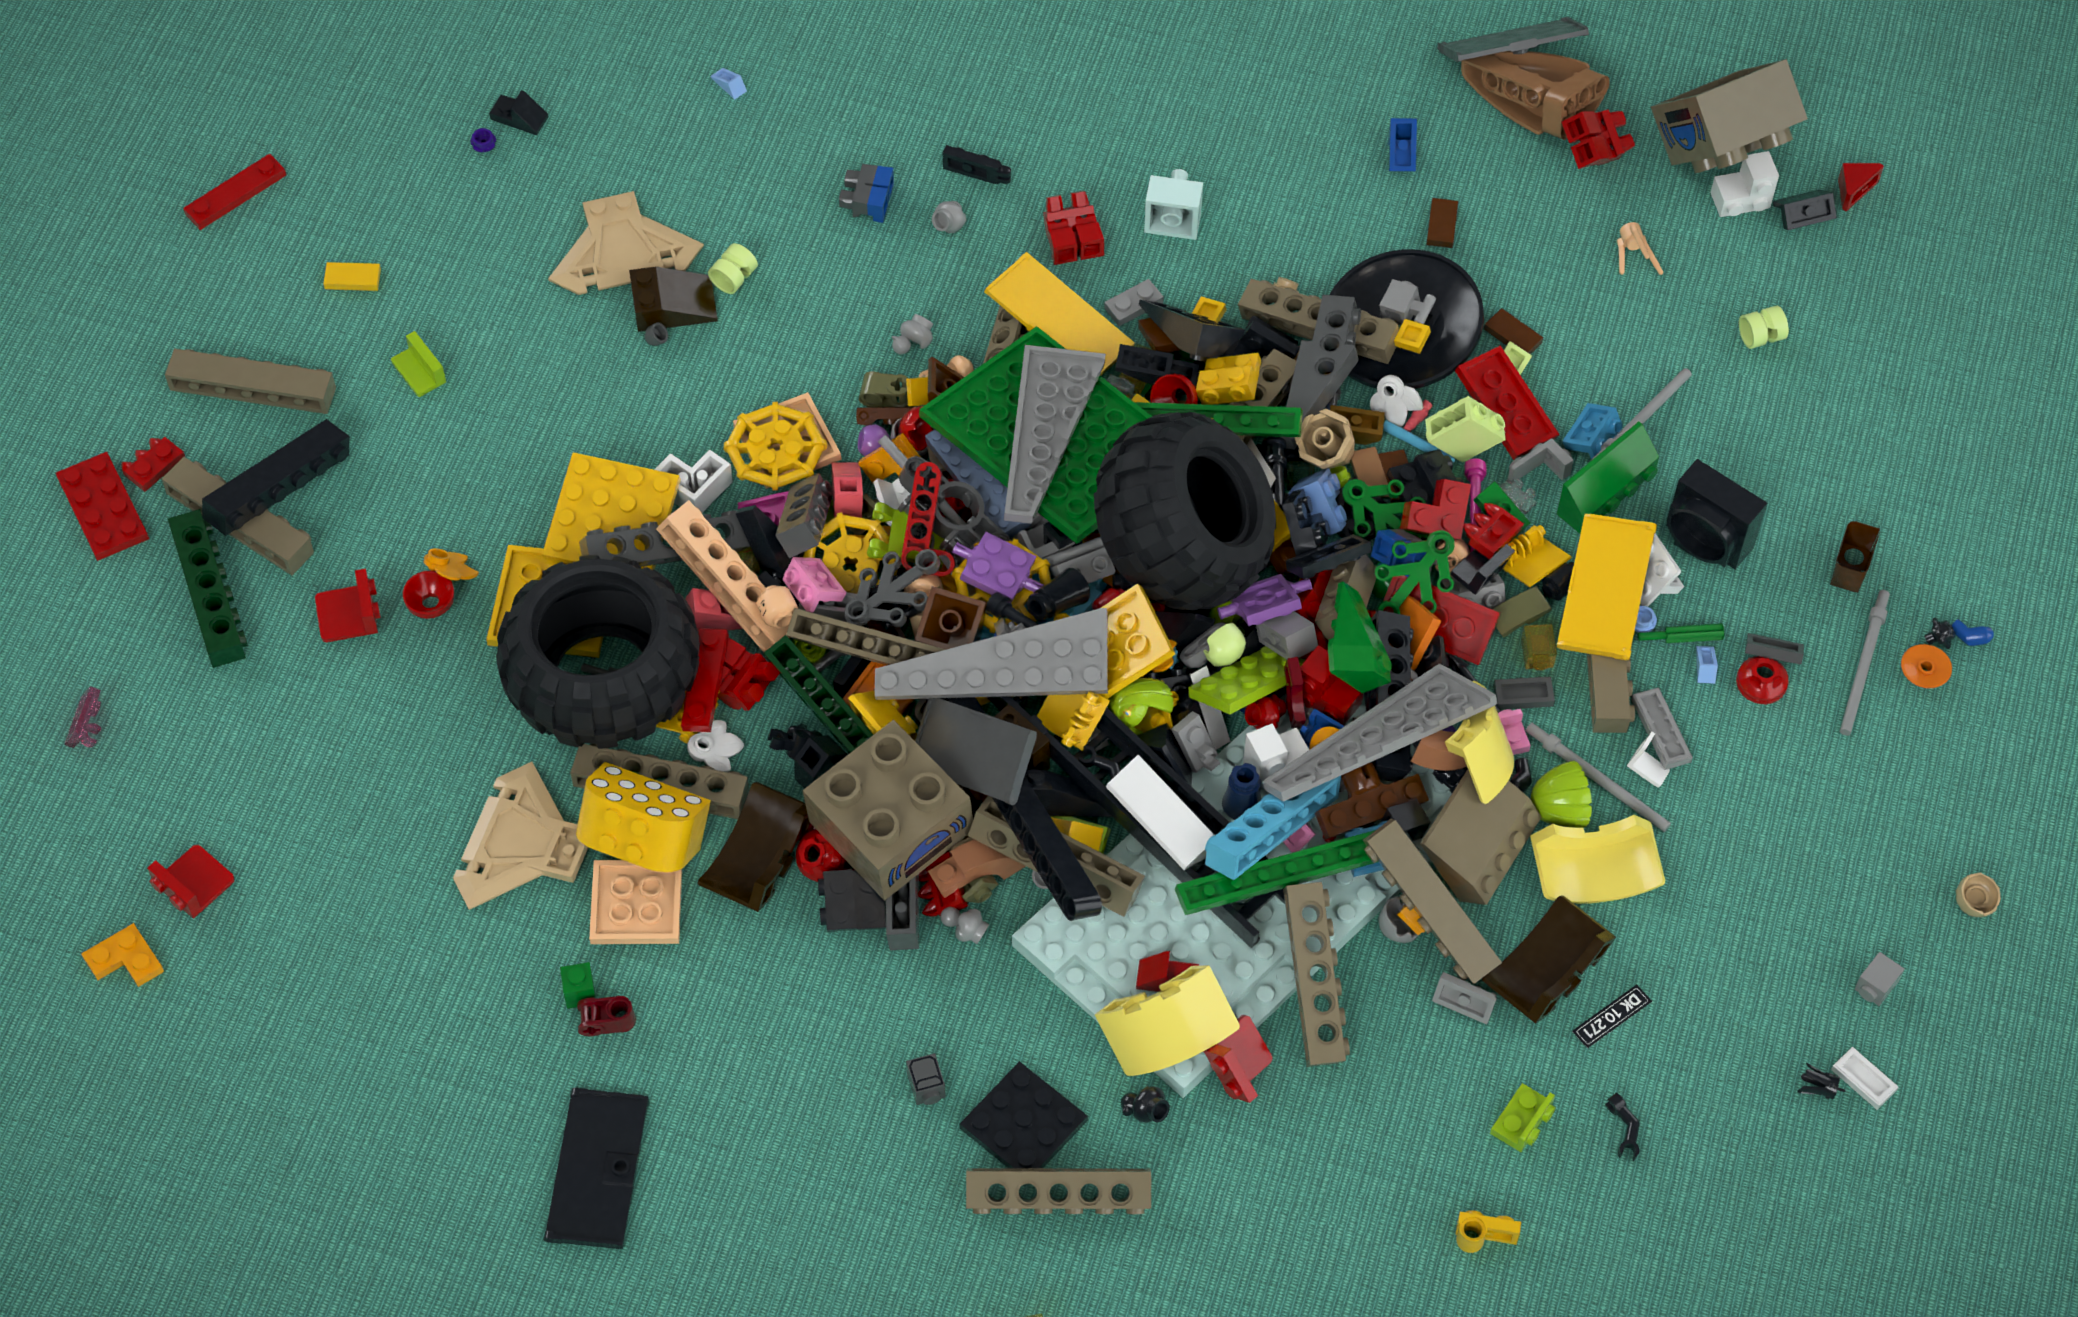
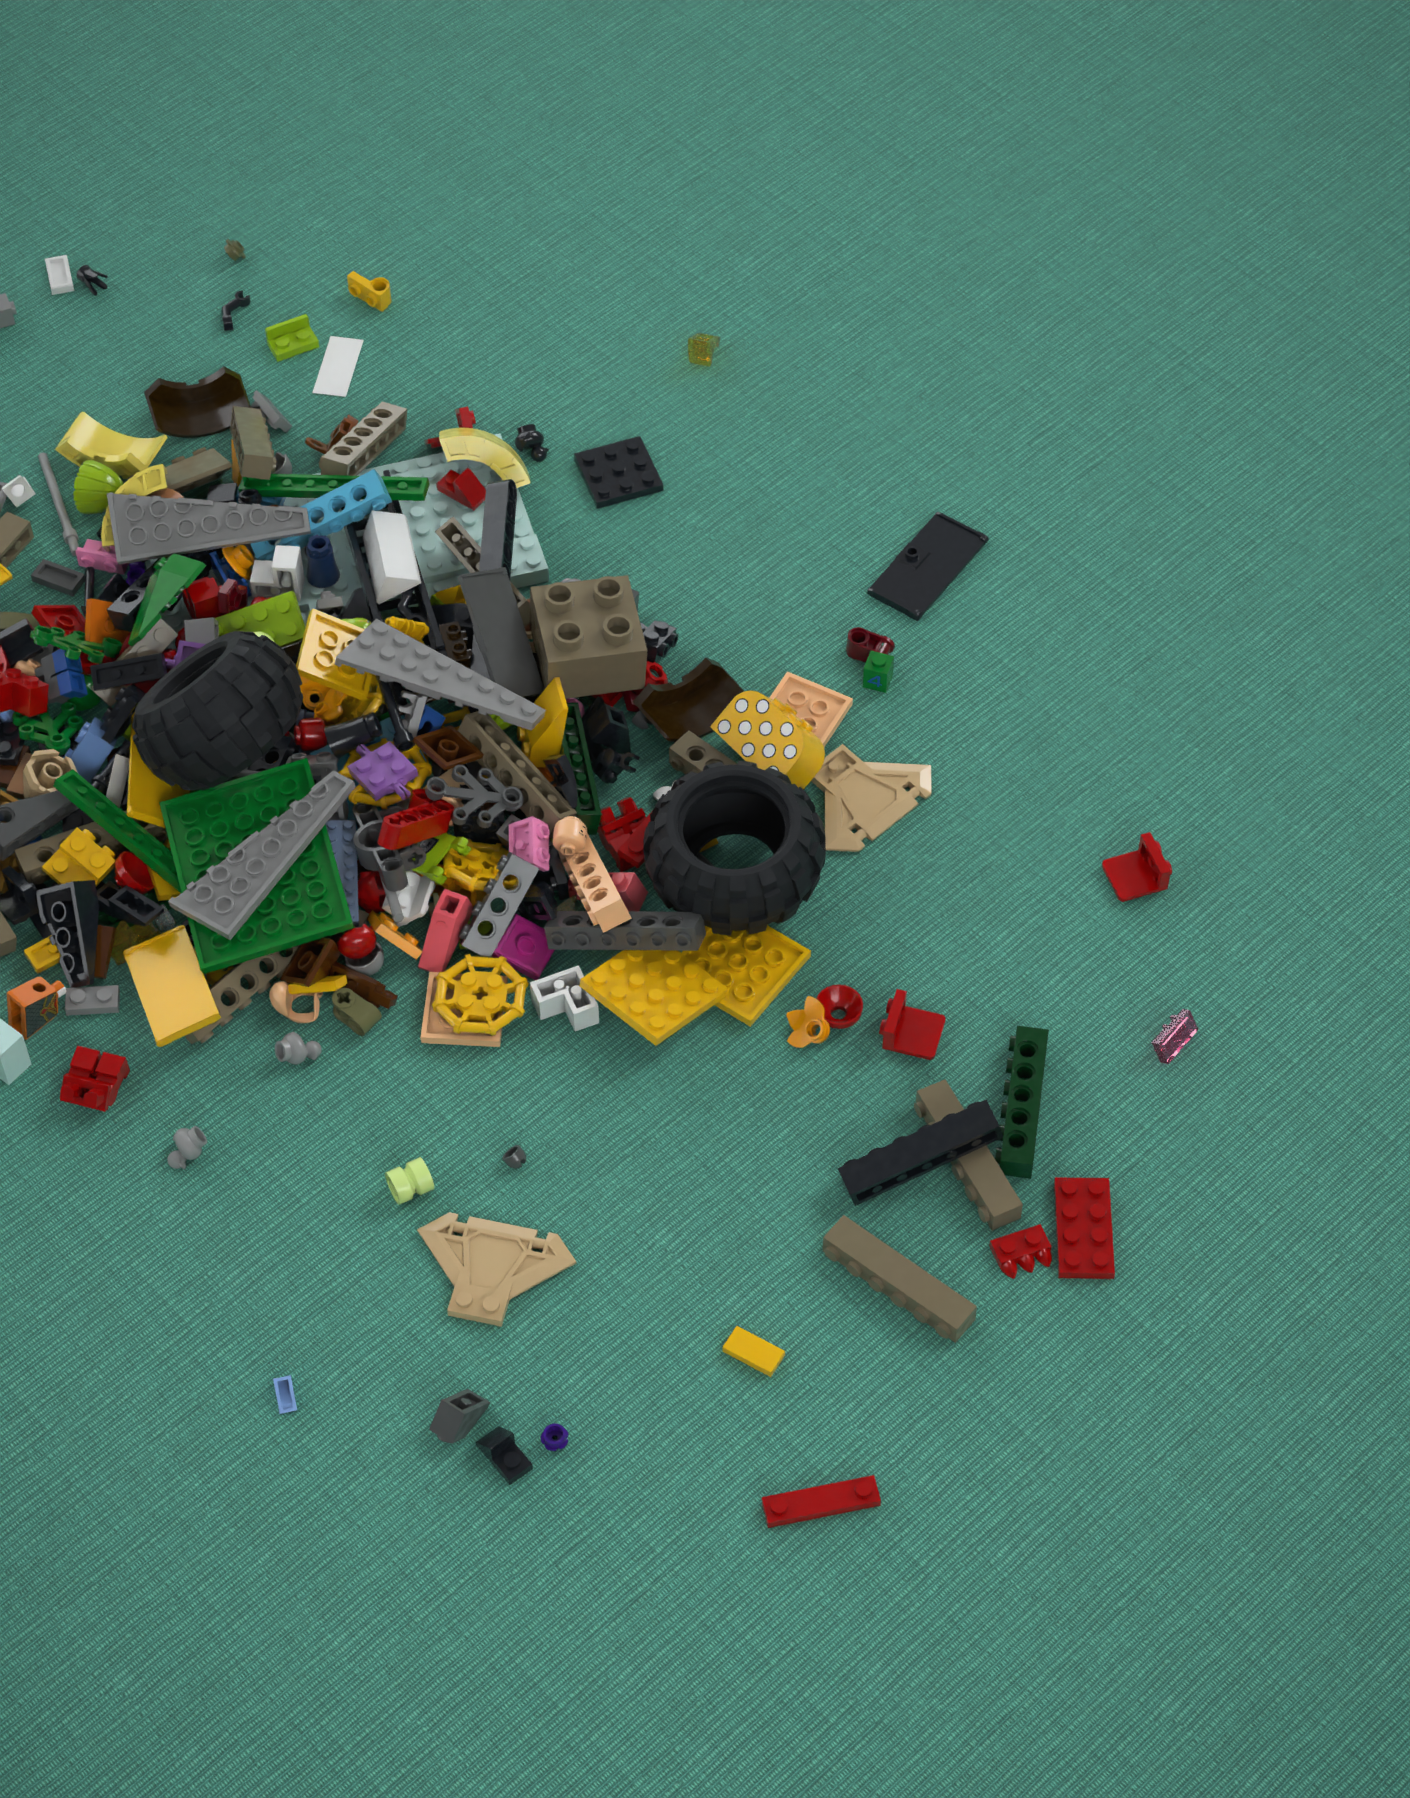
camera: 150 degrees left, 5 degrees down
(124, 949) = (1210, 851): light orange plate -> none
(419, 366) = (740, 1228): lime panel -> none
(570, 119) = (458, 1415): none -> dark grey slope
(671, 297) = (481, 1184): dark brown slope -> none
(824, 659) = (563, 776): none -> black slope
(869, 438) = (396, 970): medium lavender piece -> none
(872, 191) = (239, 1201): hips -> none
(925, 1079) = (668, 516): dark grey brick -> none
(975, 165) = (124, 1180): black hinge -> none
(1136, 1179) = (625, 415): dark tan brick -> none
(1174, 259) = (33, 1005): none -> orange torso
(1360, 990) = (341, 430): none -> dark orange piece
(1376, 813) = (250, 497): none -> black plate
(1447, 1116) = (338, 366): none -> white sticker
(1538, 646) = (21, 594): clear yellow brick -> none
(1612, 1016) = (183, 373): black sticker -> none
(1698, 1208) = (234, 249): none -> olive plate

